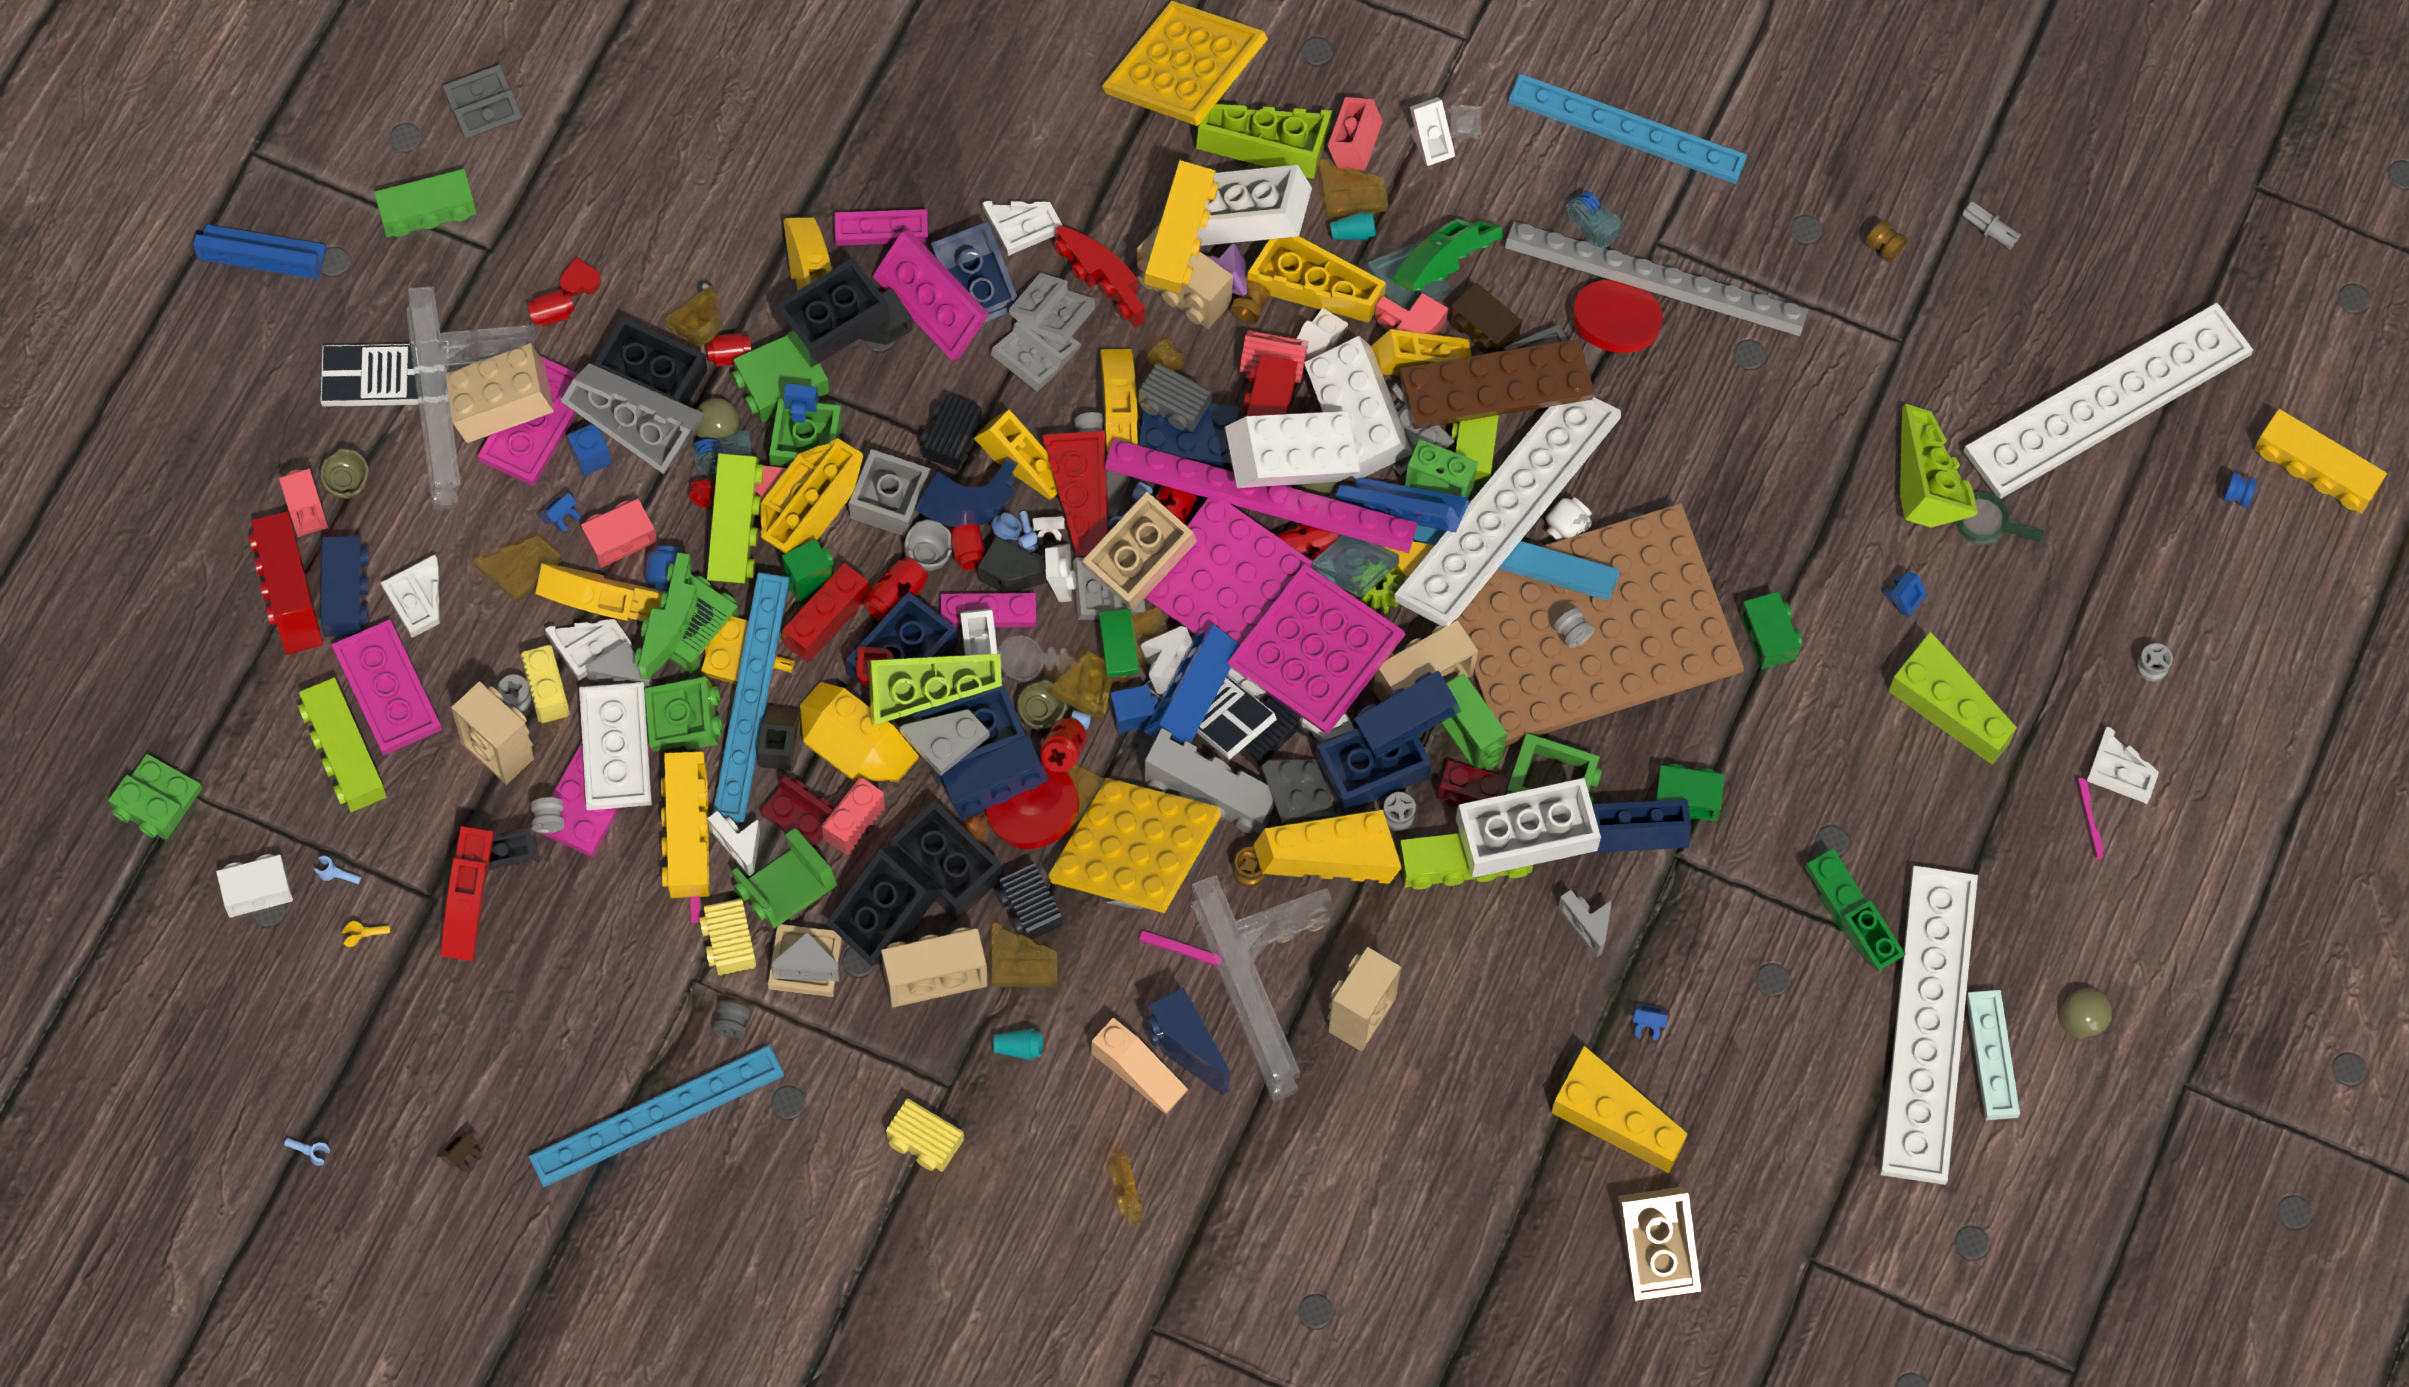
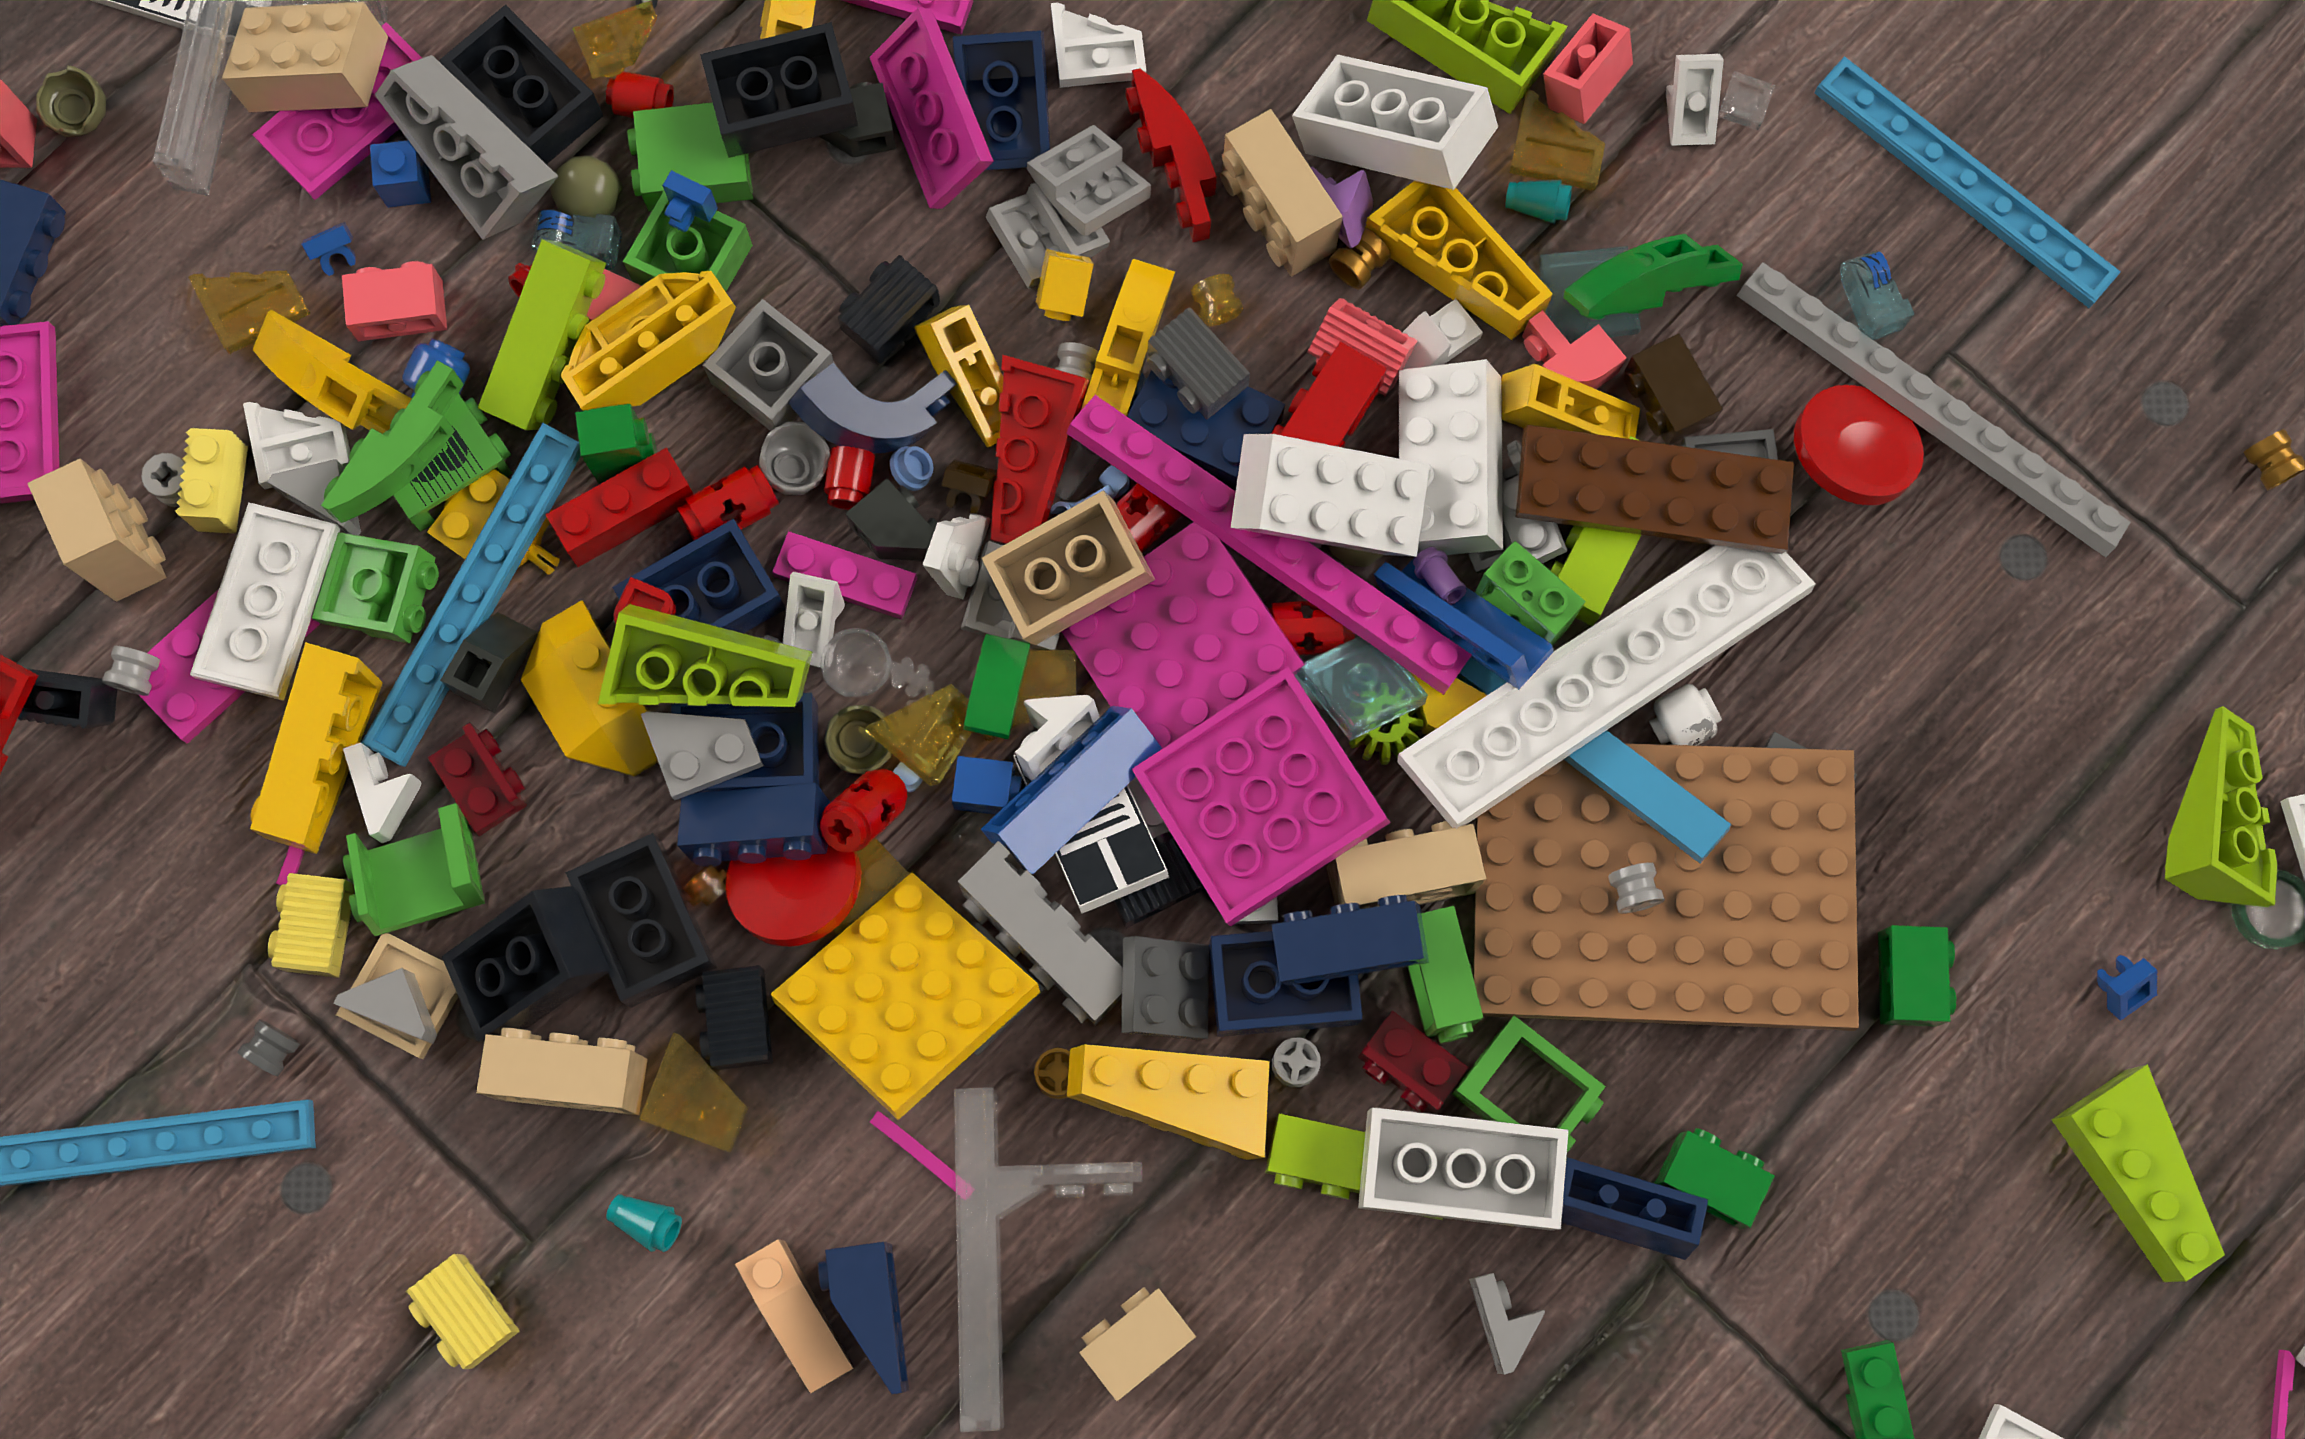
camera: 20 degrees right, 10 degrees up
(416, 595) = (99, 300): white wing -> none
(853, 816) = (545, 810): coral brick -> none
(1028, 541) = (935, 496): light blue hand -> none
(1063, 379) = (1064, 284): none -> yellow brick
(1180, 227) = (1291, 125): yellow wedge -> none
(1372, 479) = (1434, 569): none -> medium lavender pin

